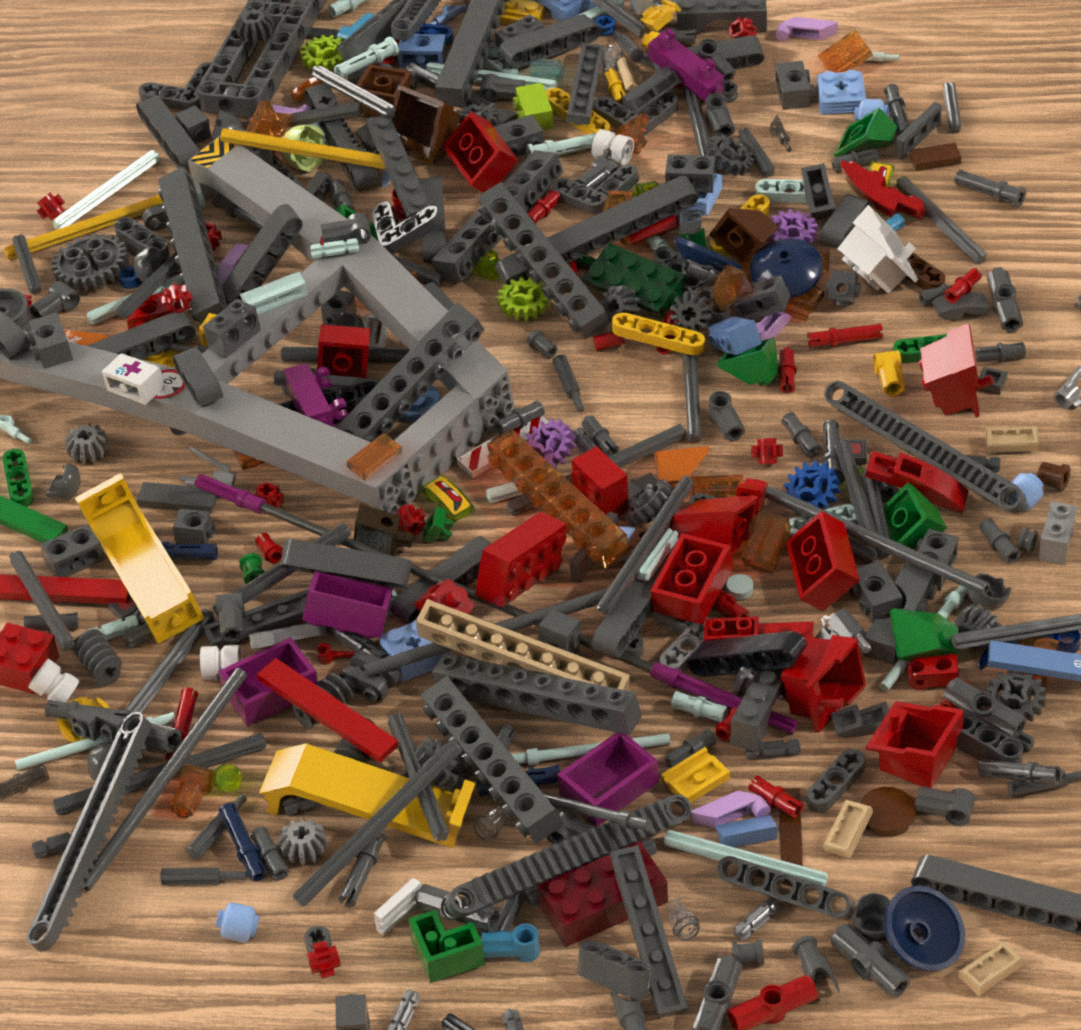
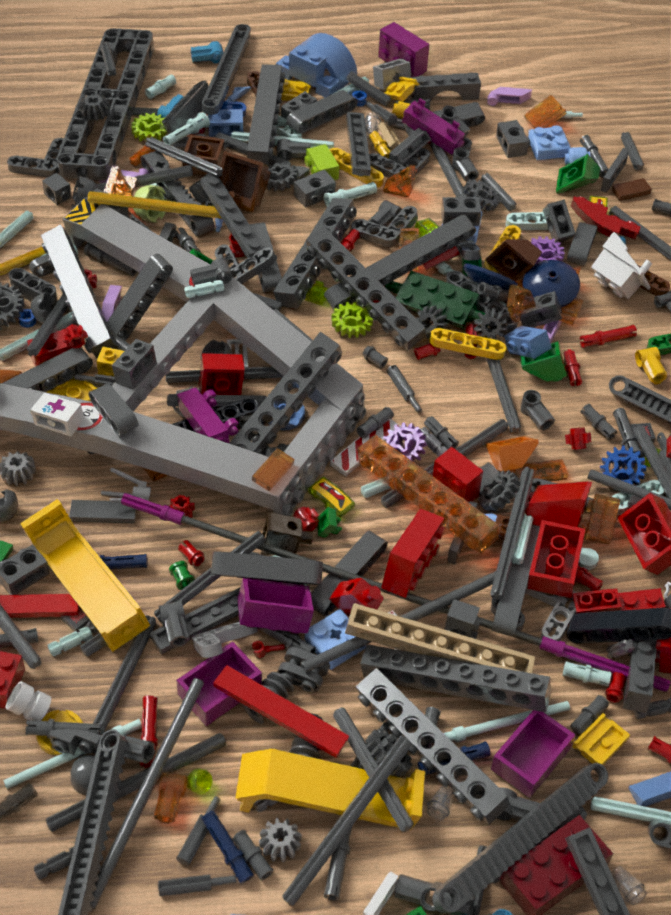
camera: 15 degrees left, 5 degrees up
(97, 657) = (62, 671): dark grey piece -> none
(167, 131) = (38, 196): dark grey beam -> none
(193, 527) = (123, 539): dark grey brick -> none
(214, 660) = (171, 667): white wheel -> none
(276, 293) = (164, 329): light aqua piece -> none
(339, 303) = (209, 334): dark grey brick -> none
(480, 152) = (292, 202): red brick -> none
(546, 69) = (324, 133): clear light blue brick -> none
(615, 148) = (390, 192): white wheel -> none
(624, 818) = (568, 798): dark grey bar -> none
(730, 809) = (637, 769): lavender piece -> none
(742, 28) = (464, 97): red gear -> none
(753, 487) = (577, 473): red leg -> none
(780, 132) = (510, 174): clear smoke hand -> none
(841, 278) = (603, 292): dark grey brick -> none
(862, 158) = (568, 196): dark grey axle -> none

